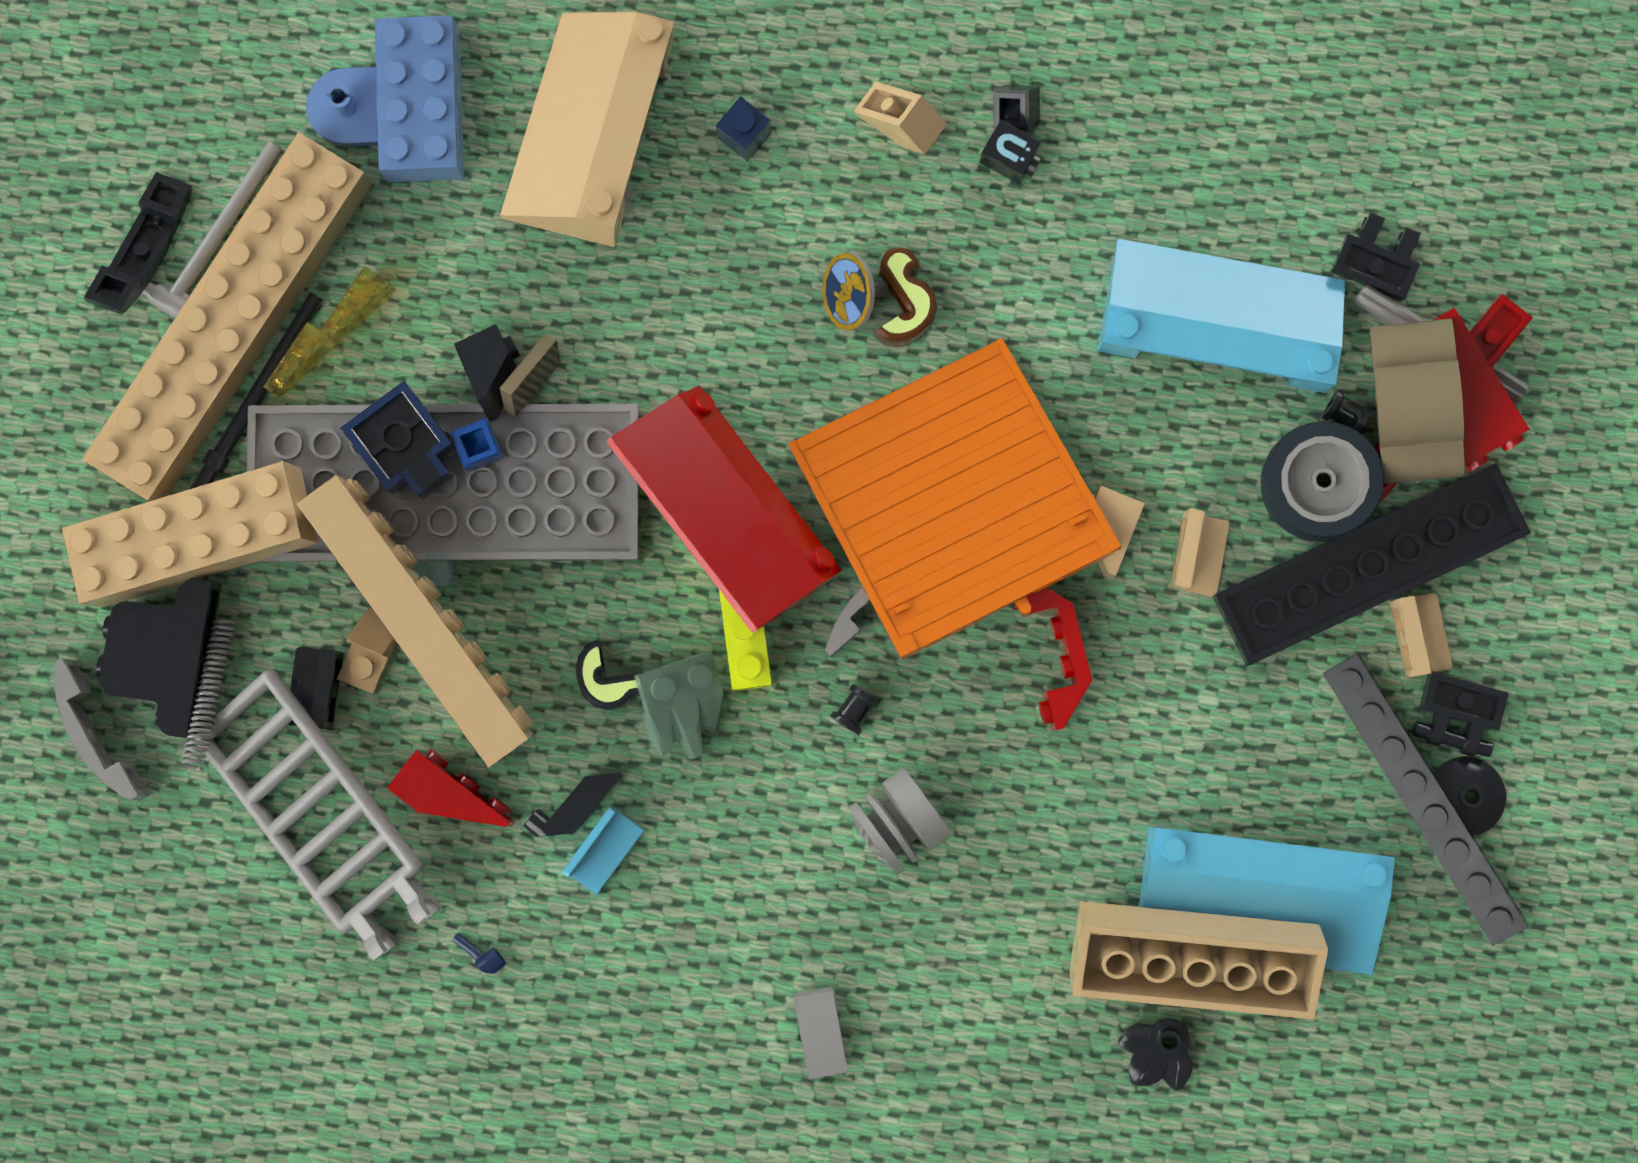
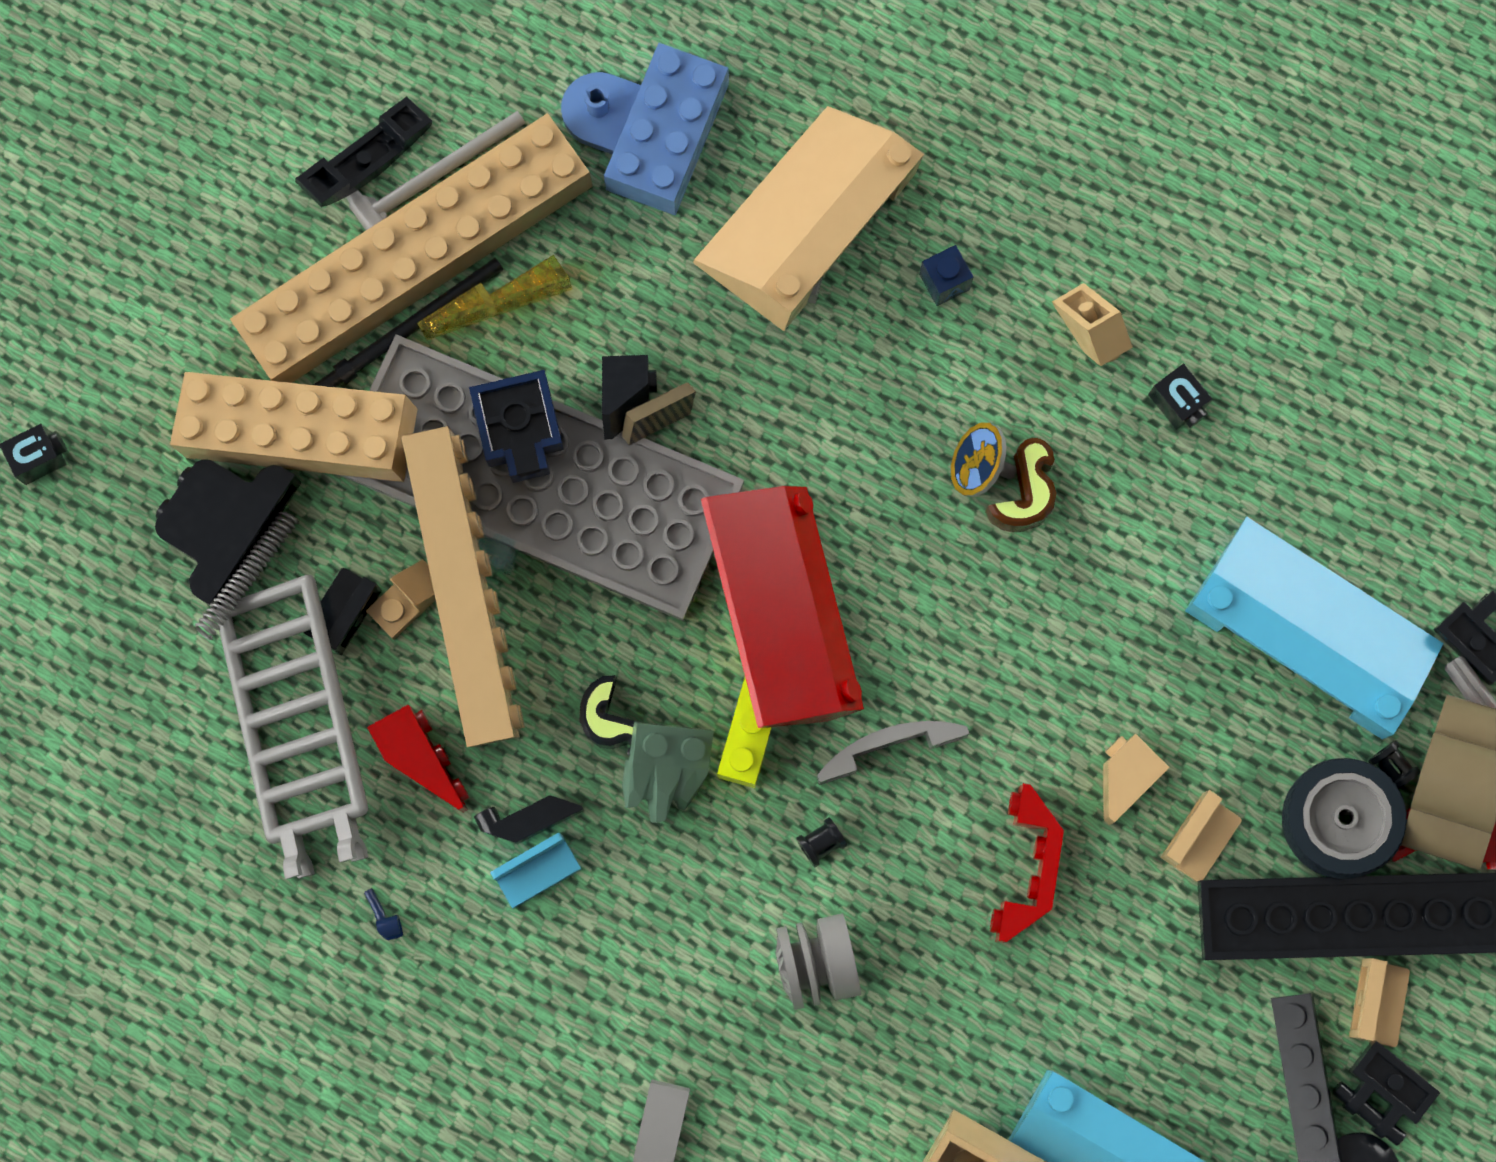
camera: 25 degrees right, 5 degrees down
(69, 691) = (127, 519): light grey slope -> none
(476, 445) = (583, 455): blue slope -> none
(953, 498) = (995, 688): orange door -> none
(1017, 106) = (1204, 358): black slope -> none

